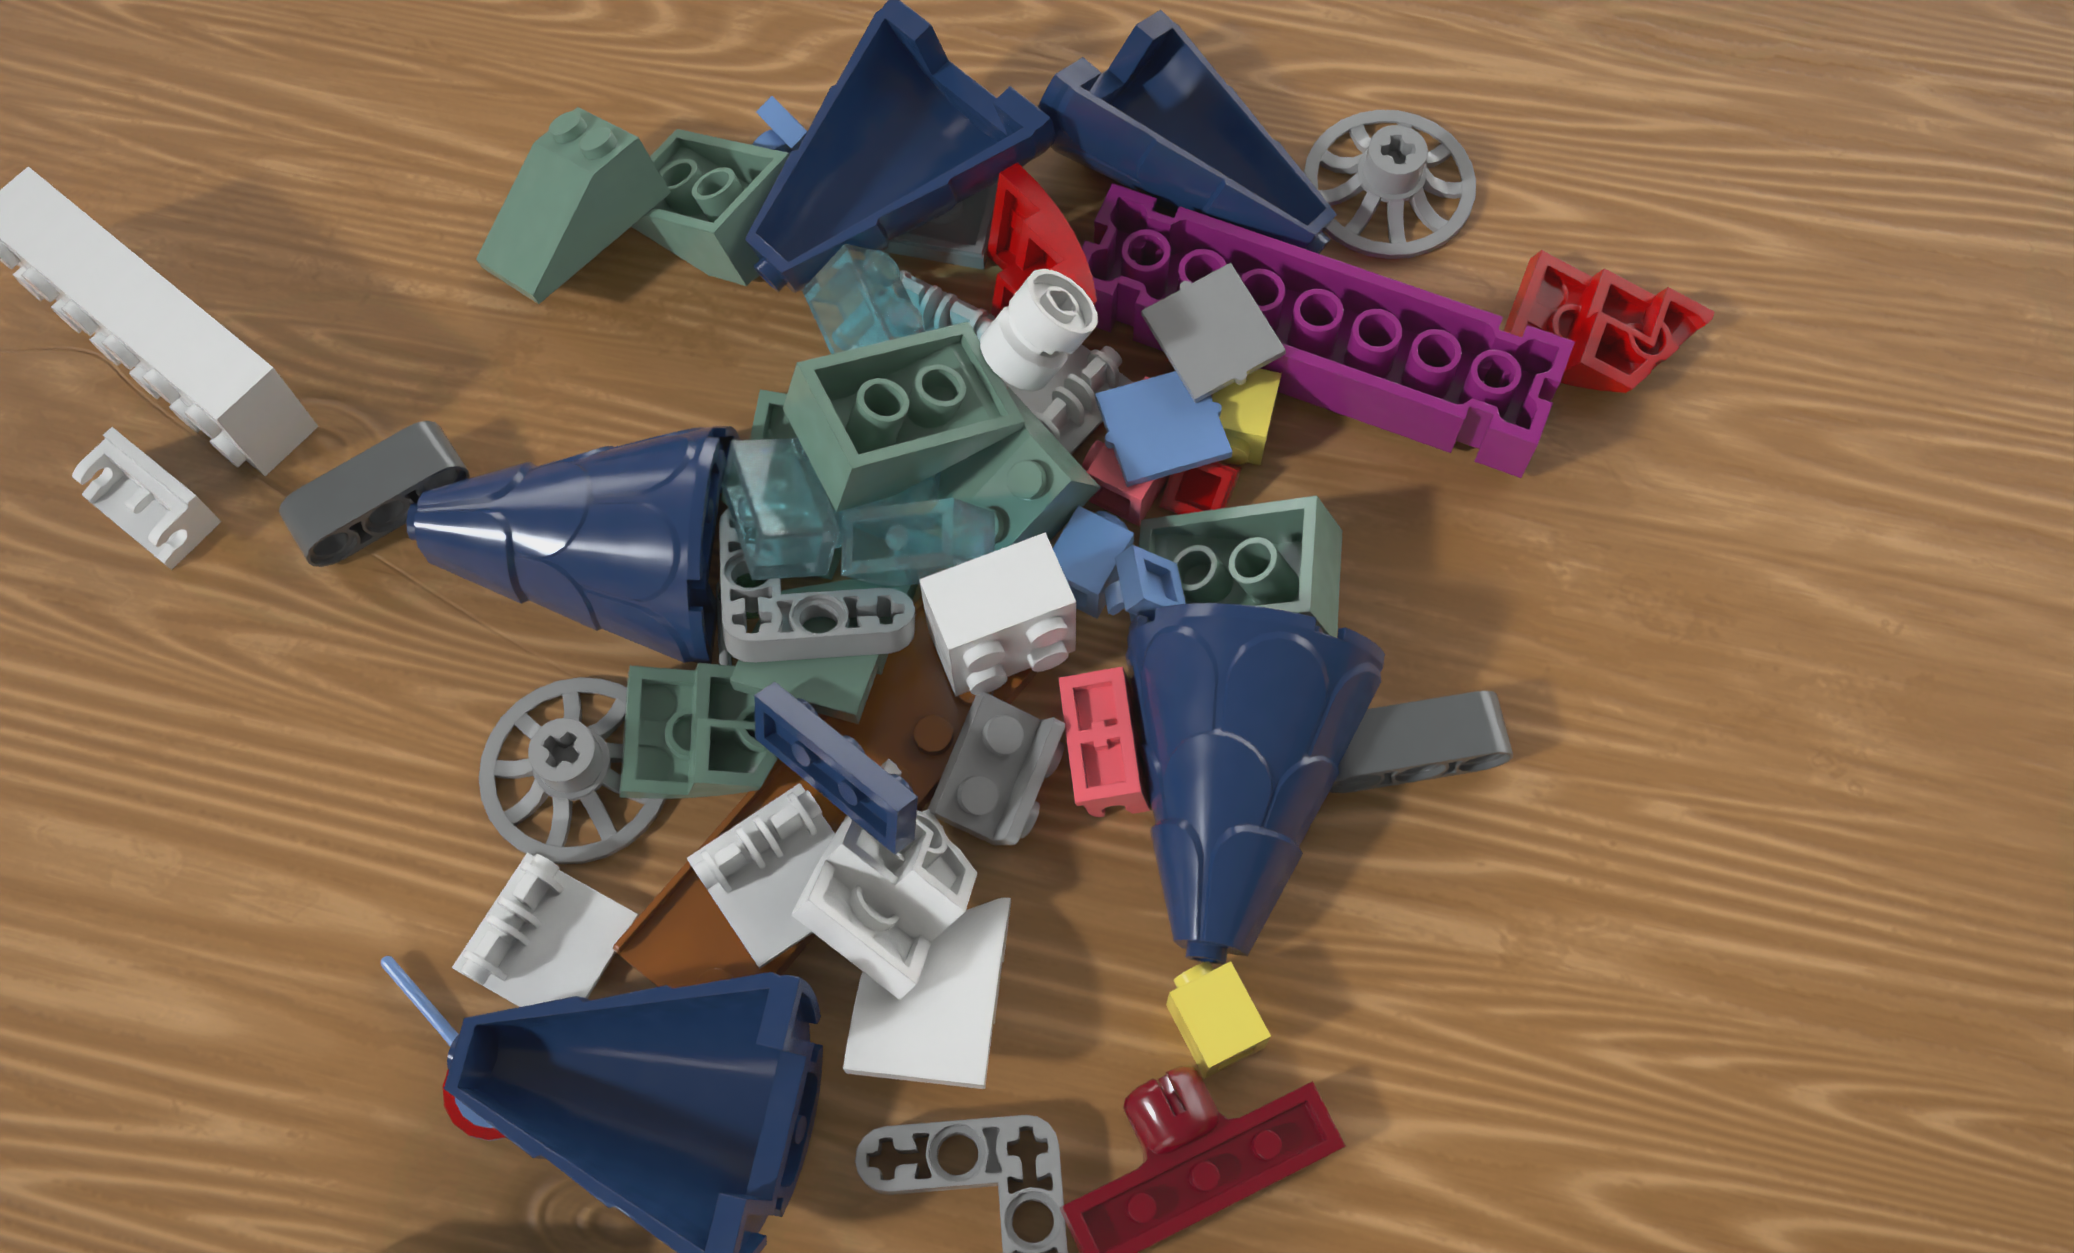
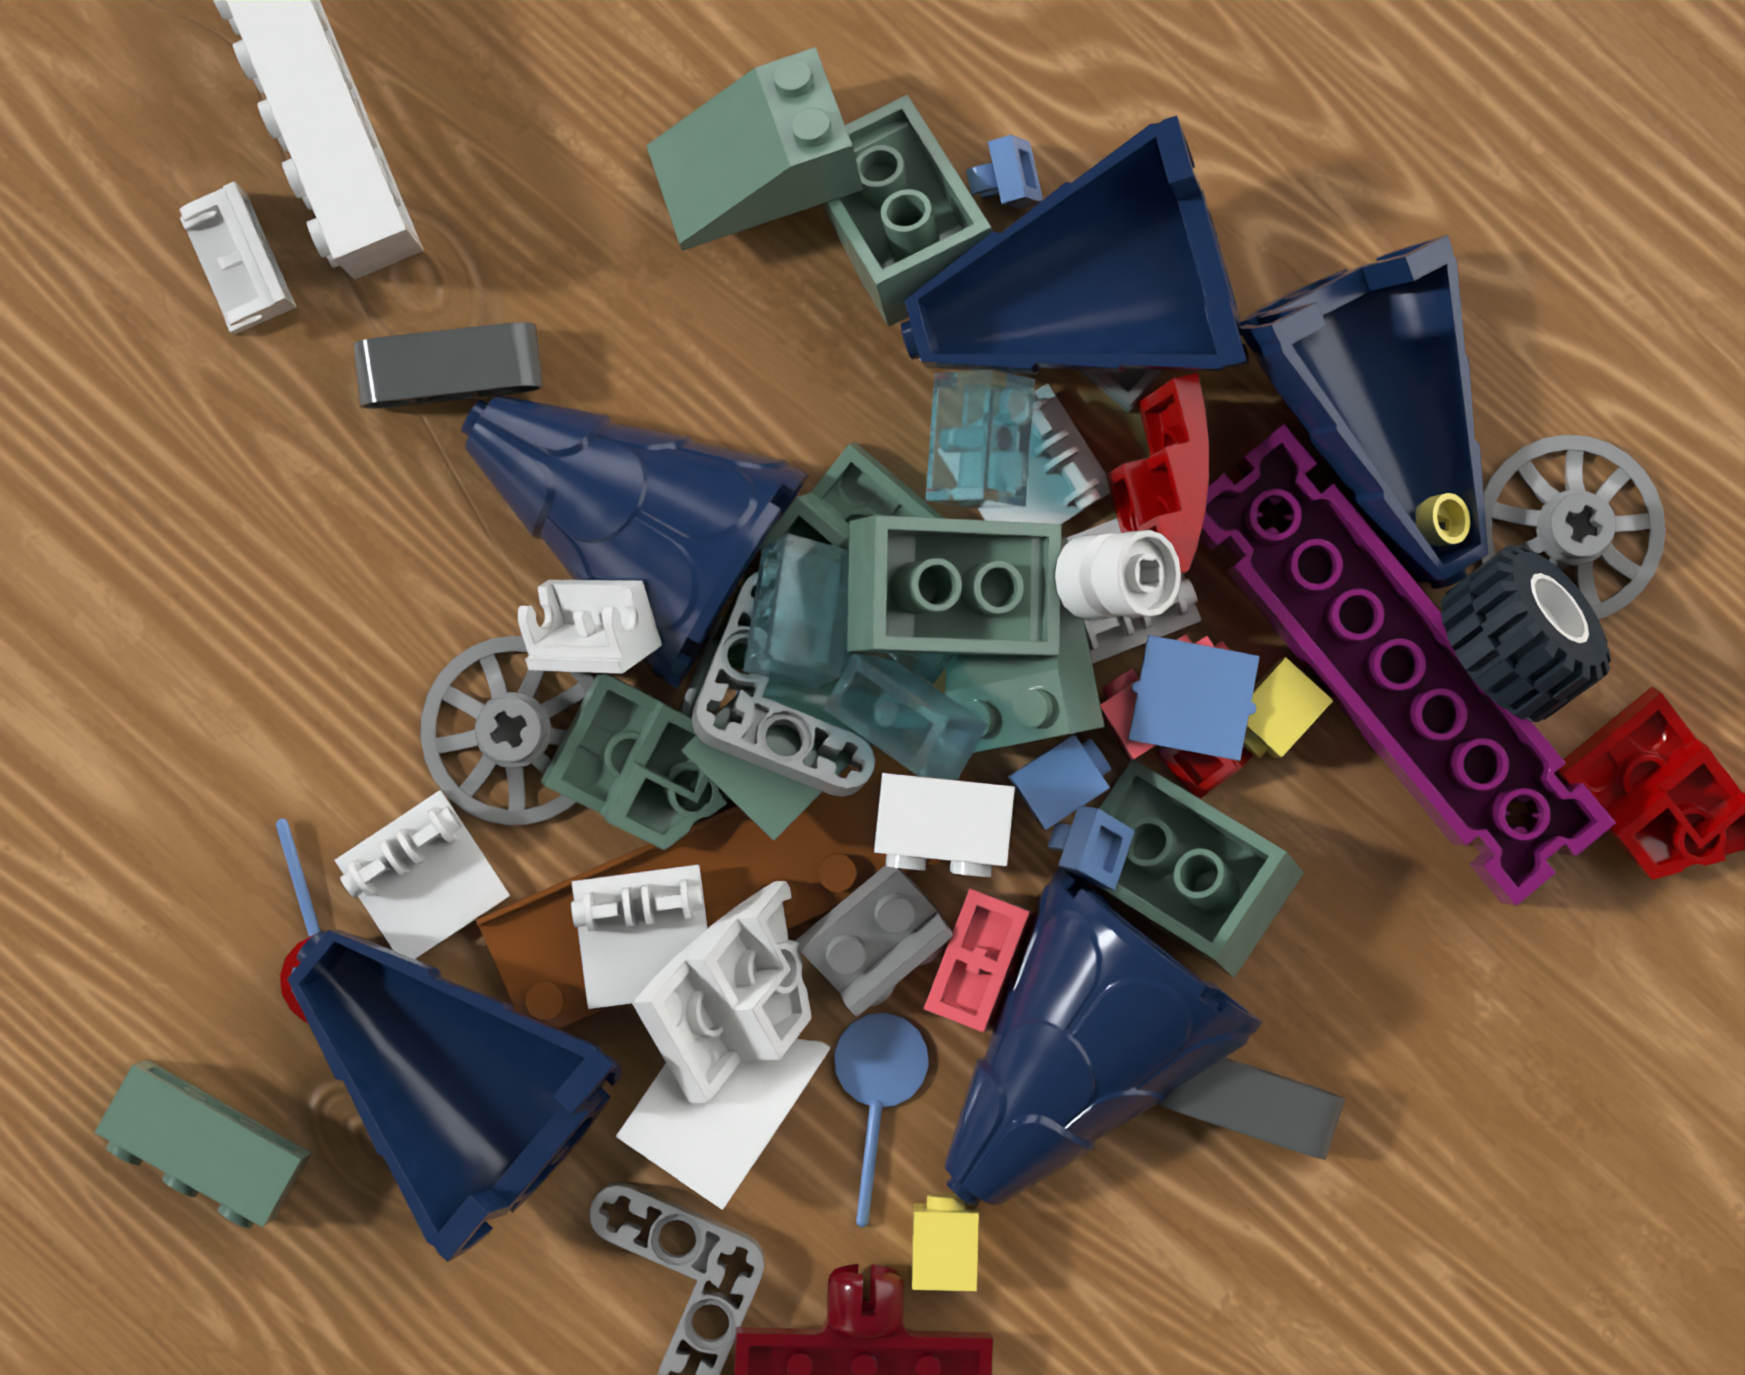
camera: 25 degrees right, 20 degrees up
(595, 624) = (589, 626): none -> white hinge
(836, 767) = (733, 884): dark blue plate -> none
(1065, 893) = (880, 1065): none -> medium blue piece
(1213, 332) = (1287, 637): light grey piece -> none
(1288, 200) = (1445, 509): none -> light yellow hinge
(1405, 240) = (1525, 633): none -> black wheel

